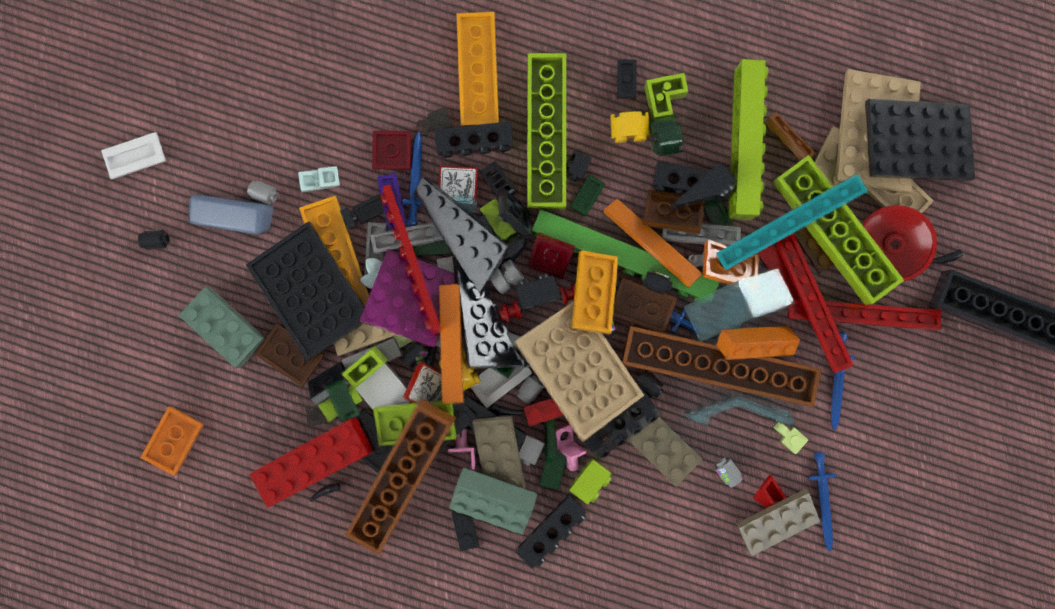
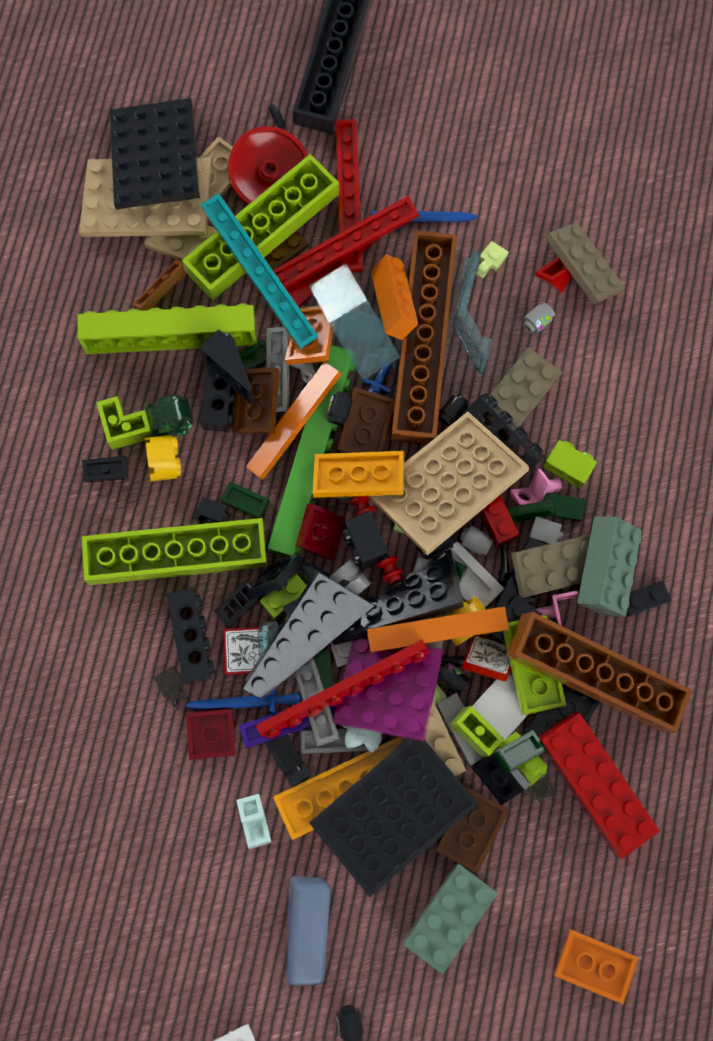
camera: 100 degrees left, 10 degrees down
(262, 192) = (277, 889): light grey brick -> none
(330, 488) = (624, 764): black helmet -> none
(477, 68) = (104, 642): light orange plate -> none
(539, 534) = (635, 512): black brick -> none
(823, 492) = (547, 221): blue sword -> none

